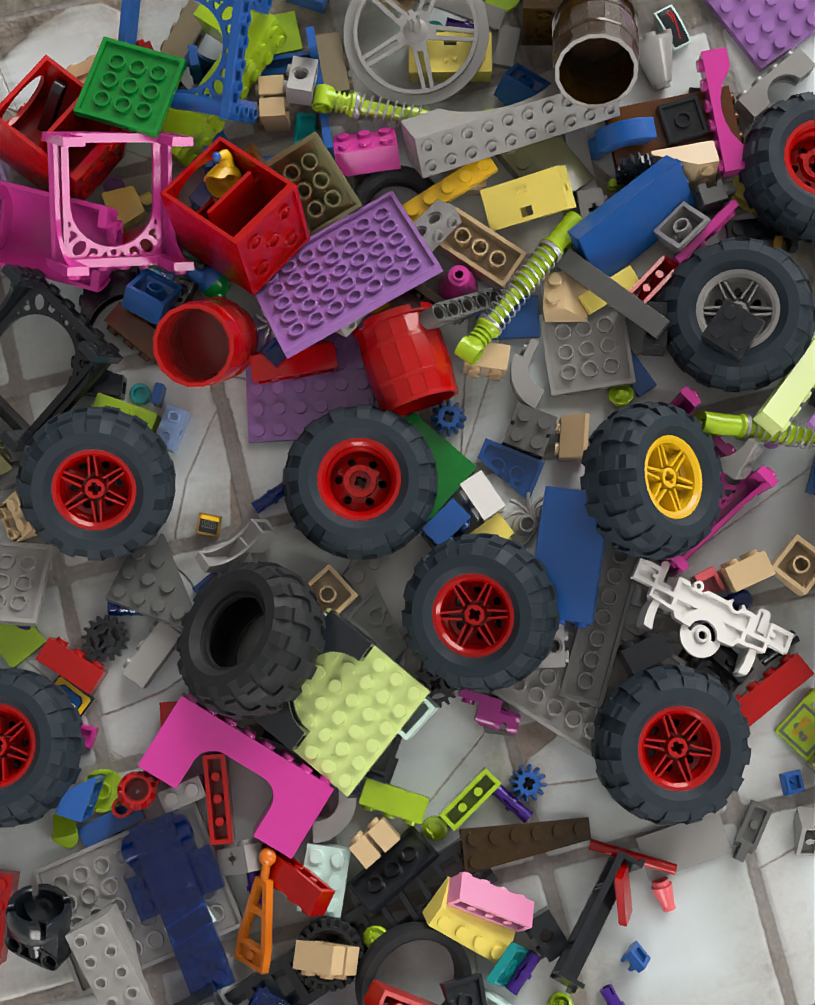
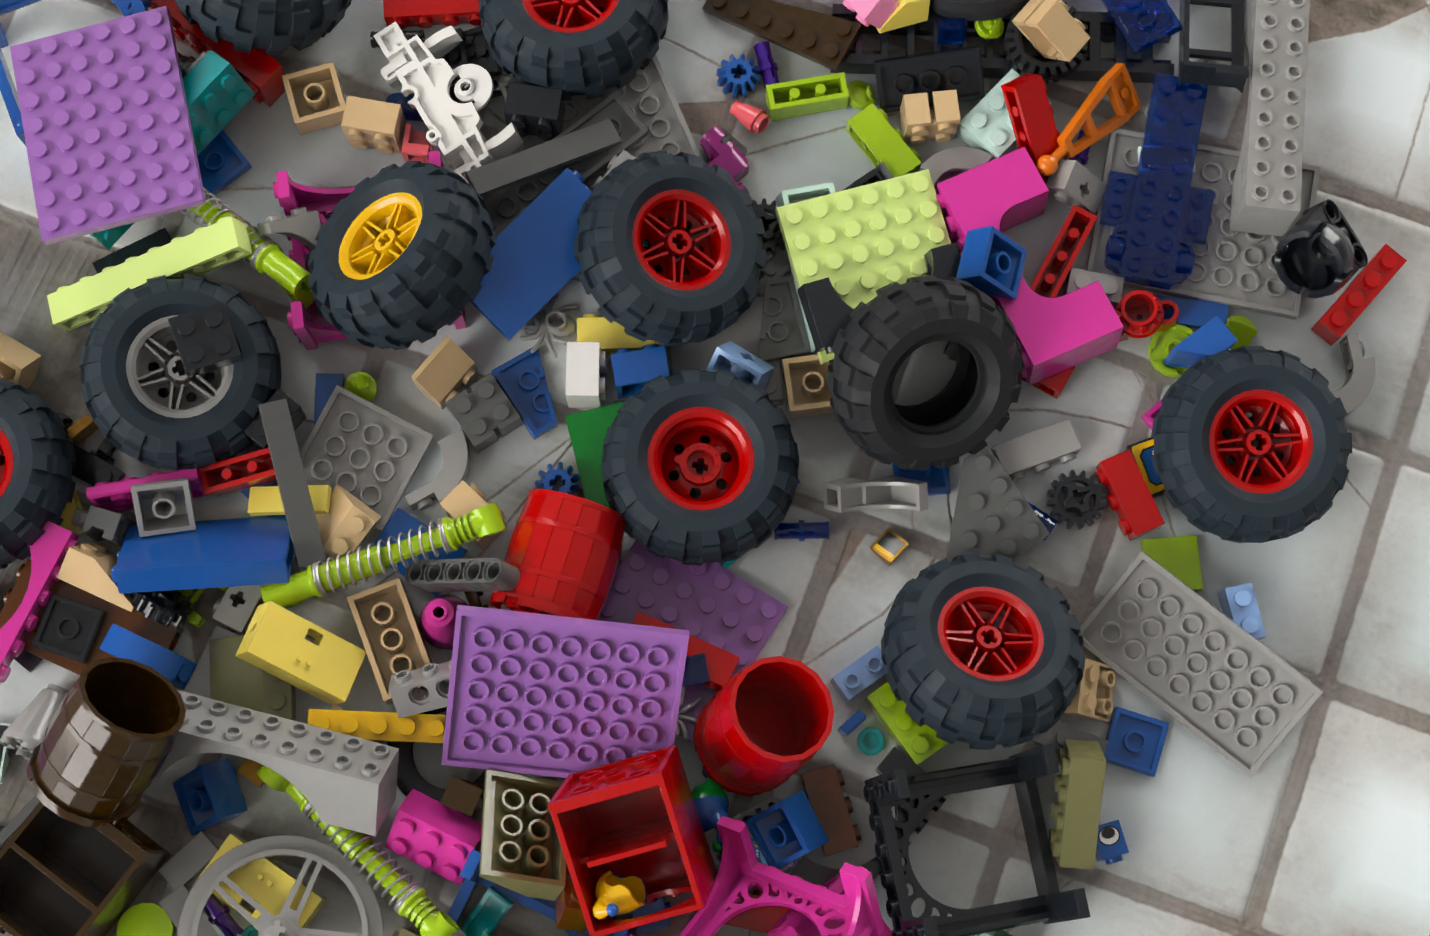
camera: 150 degrees left, 5 degrees down
(255, 749) = (992, 262): none -> blue slope
(366, 182) = (463, 795): none -> dark brown brick
(382, 571) = (742, 363): none -> light blue brick
(399, 913) = (951, 31): none -> clear blue tile
(498, 758) = (751, 117): none -> coral cone
(612, 619) = (543, 158): none -> dark grey tile

